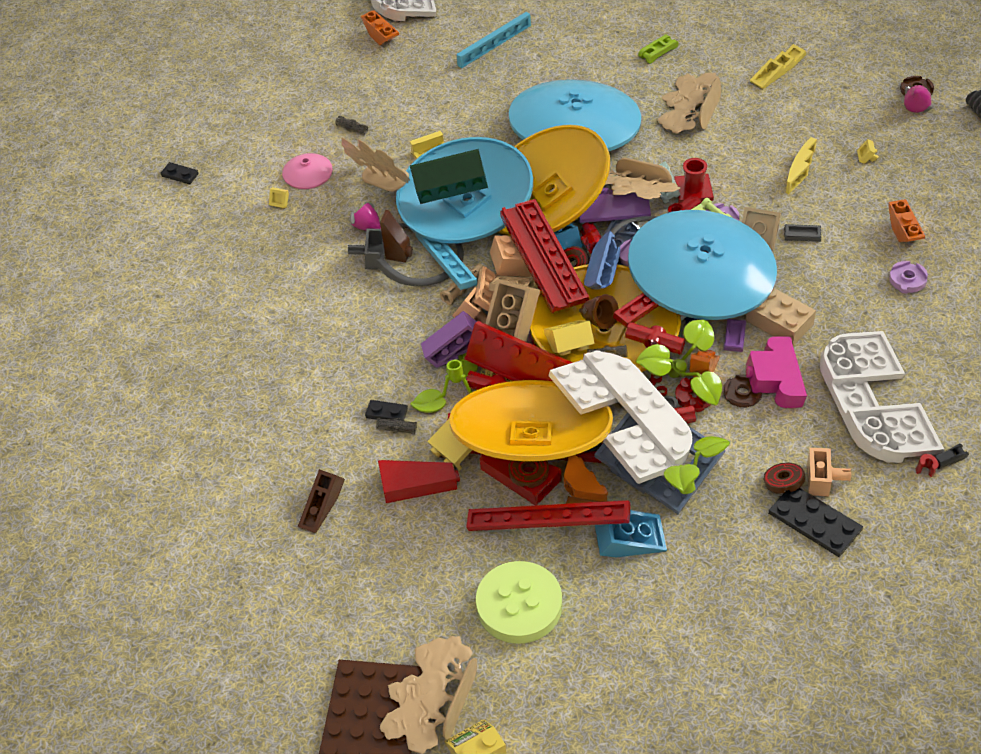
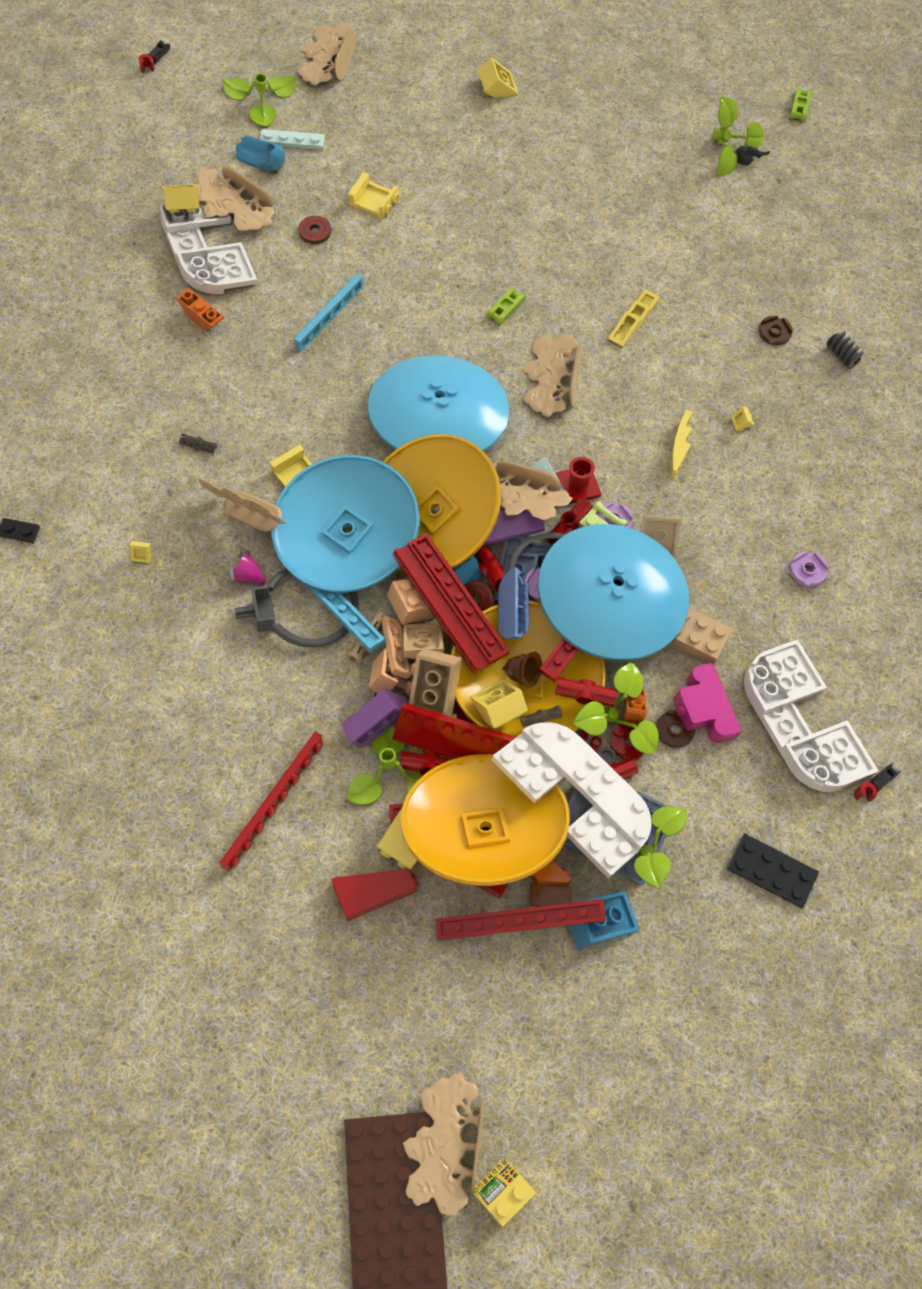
camera: 20 degrees left, 15 degrees up
(307, 171) = (164, 517): bright pink dish -> none
(321, 500) = (280, 934): reddish brown slope -> none
(340, 397) = (268, 807): none -> red plate
(385, 410) = (322, 810): black plate -> none
(395, 240) = (285, 597): reddish brown slope -> none
(396, 425) = (337, 827): clear smoke pin -> none
(449, 176) = (329, 516): dark green slope -> none
(519, 602) = (509, 1018): yellowish green brick -> none
(735, 335) = (656, 667): medium lavender tile -> none
(793, 475) = (736, 839): reddish brown tile -> none
(802, 232) = (697, 527): dark grey tile -> none
(822, 473) = (771, 819): light nougat brick -> none
(904, 222) = (796, 506): orange slope -> none
(917, 99) = (780, 347): dark pink hat -> none

